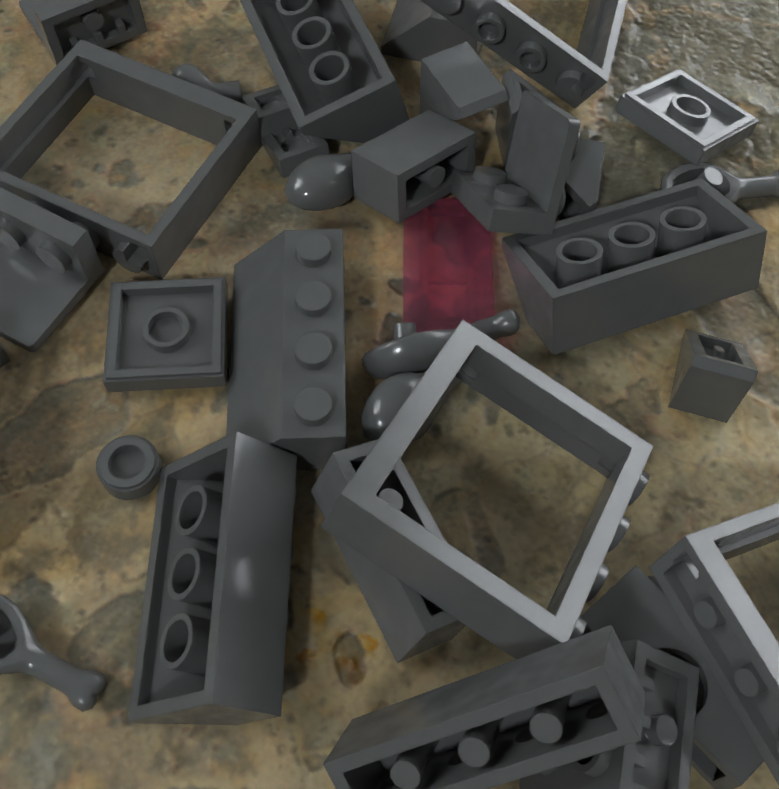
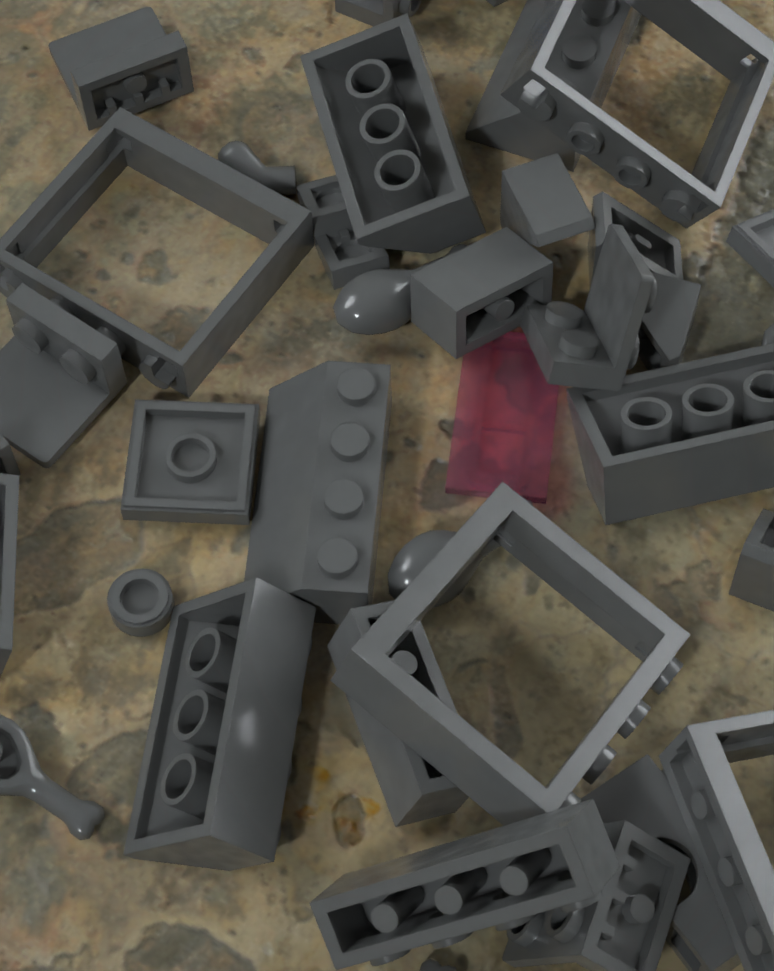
camera: 10 degrees right, 0 degrees up
(416, 351) = (452, 506): dark grey piece -> none

